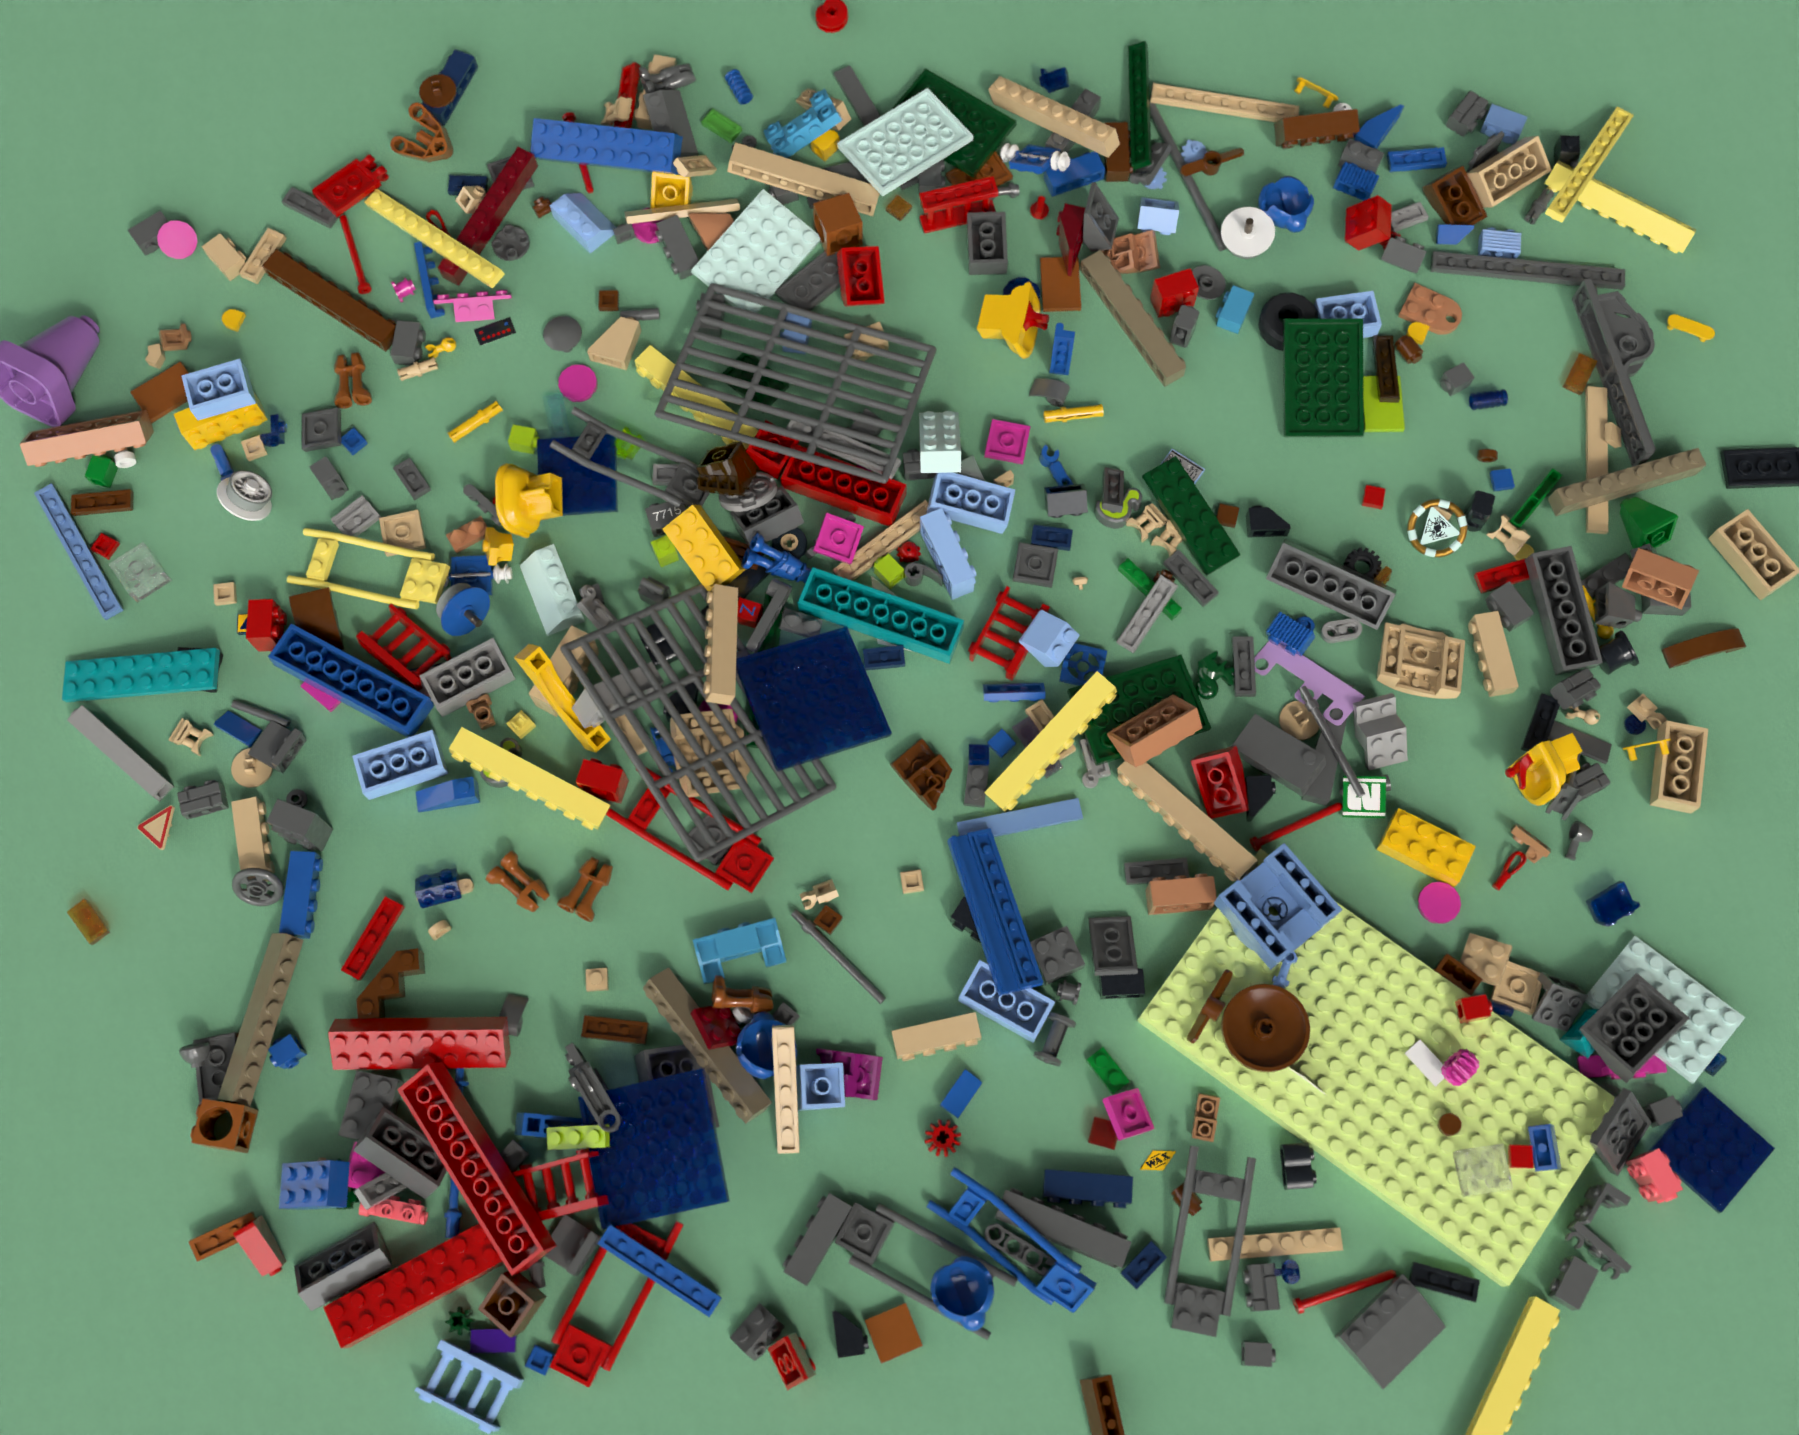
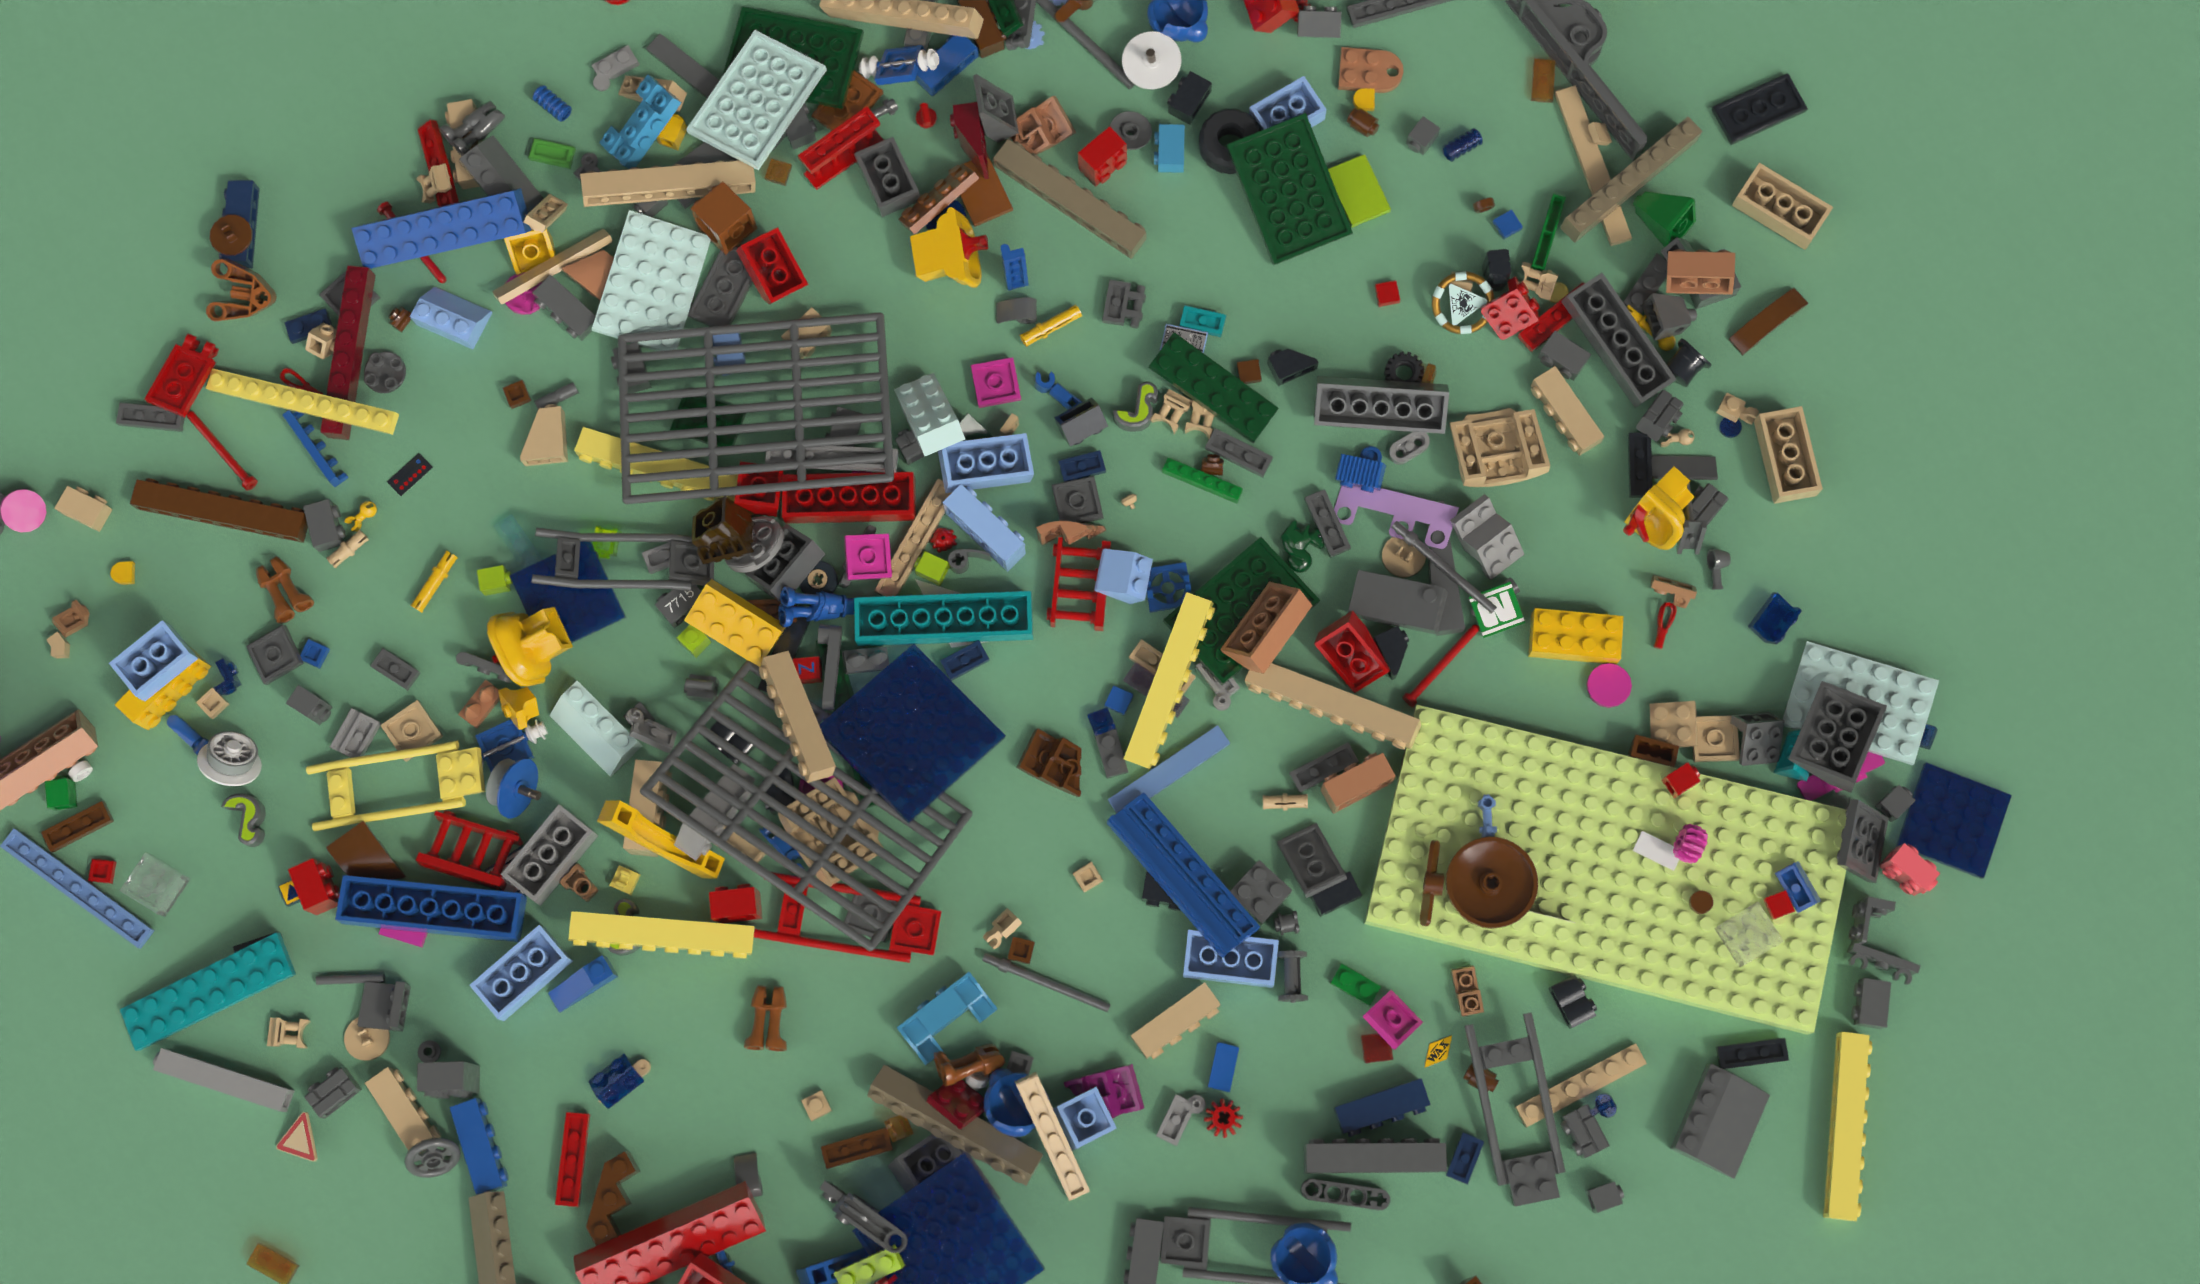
camera: 20 degrees left, 5 degrees up
(162, 392) = (86, 681): dark orange tile -> none
(225, 593) = (254, 870): tan plate -> none
(238, 728) = (334, 1004): blue slope -> none
(242, 550) = (252, 817): none -> dark grey animal
(267, 245) = (122, 488): tan plate -> none
(403, 288) = (292, 467): dark pink brick -> none
(439, 929) = (636, 1122): tan tile -> none
(473, 307) = (377, 457): bracket -> none
(510, 864) = (679, 1027): dark orange piece -> none
(562, 333) = (483, 449): dark grey dish -> none
(577, 383) = (523, 496): dark pink tile -> none
(623, 233) = (500, 314): dark grey plate -> none
(657, 1027) = (898, 1128): none -> clear orange tile
(800, 78) = (613, 67): none -> light grey hinge
(903, 1121) = (1178, 1117): none -> light grey hinge
(1013, 692) = (1110, 643): blue plate -> none
(1017, 582) = (1068, 530): none -> nougat slope
(1023, 274) = (935, 201): none -> dark orange plate
(1061, 1282) = (1393, 1210): blue plate -> none
(1110, 886) = (1285, 801): none -> tan pin
(1112, 490) = (1124, 392): dark grey plate -> none
(1137, 416) = (1117, 300): none -> dark grey plate
(1147, 614) = (1210, 508): light grey tile -> none
(1158, 215) = (1051, 76): light blue slope -> none
(1184, 326) = (1127, 188): dark grey brick -> none
(1205, 458) = (1203, 320): none -> teal plate
(1267, 275) = (1189, 98): none -> black brick
(1288, 888) = (1470, 740): medium blue piece -> none
(1300, 1305) = (1627, 1132): red bar -> none
(1386, 369) = (1348, 152): dark brown tile -> none
(1477, 550) = (1511, 310): none -> bracket
(1501, 1008) = (1709, 766): clear blue piece -> none
(1663, 746) = (1764, 440): yellow piece -> none

